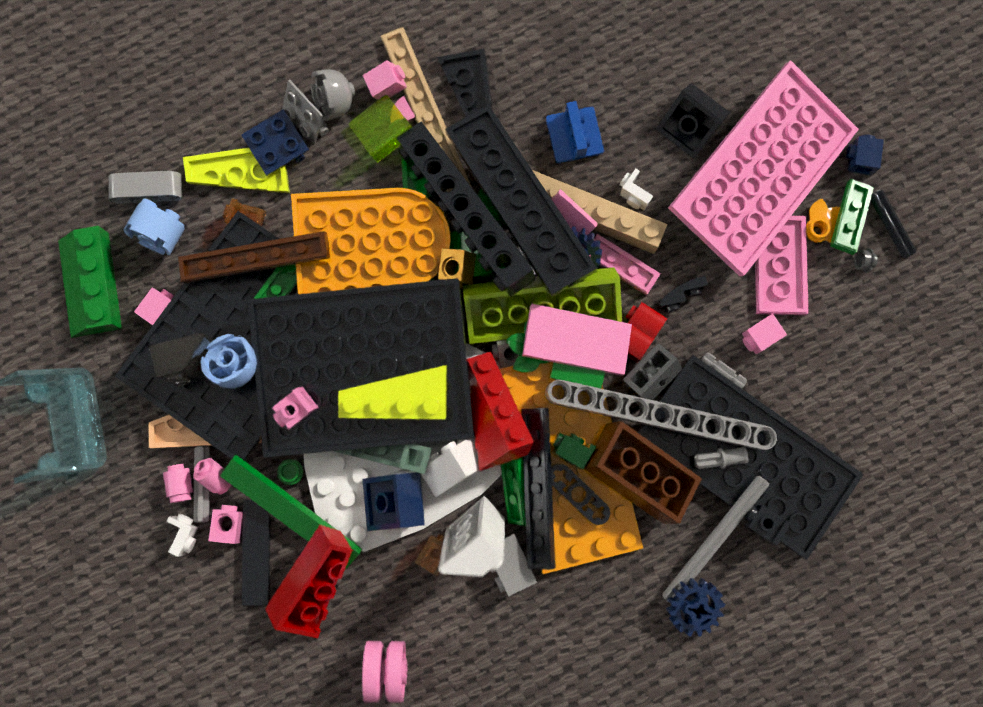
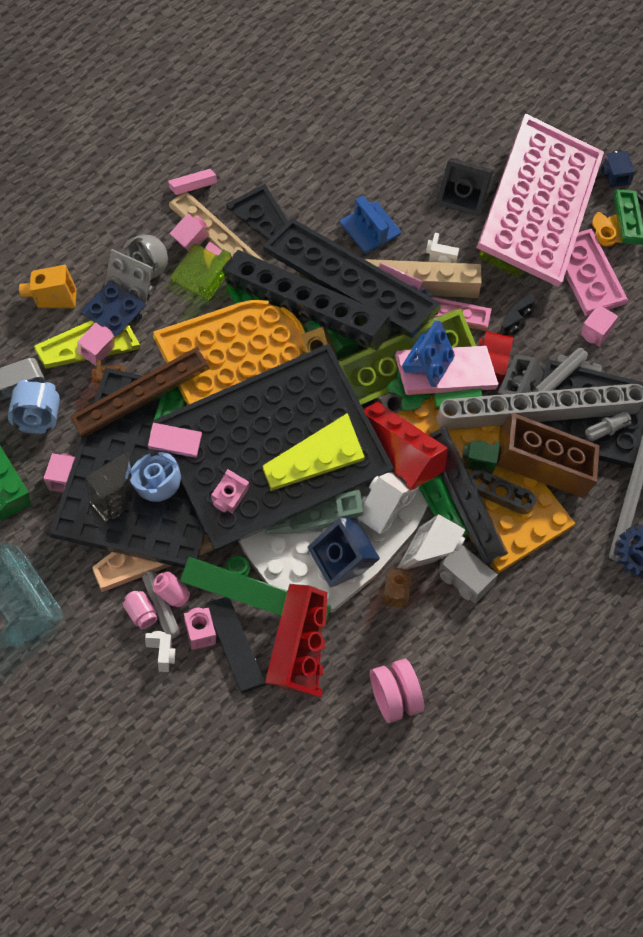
camera: 25 degrees left, 20 degrees down
(222, 98) = (50, 288): none -> light orange torso
(240, 179) = (96, 343): none -> bright pink brick
(260, 330) = (174, 440): none -> bright pink tile
(413, 20) = (192, 181): none -> bright pink tile
(562, 325) = (430, 354): none -> blue bracket
(699, 378) = (563, 371): none -> light grey axle

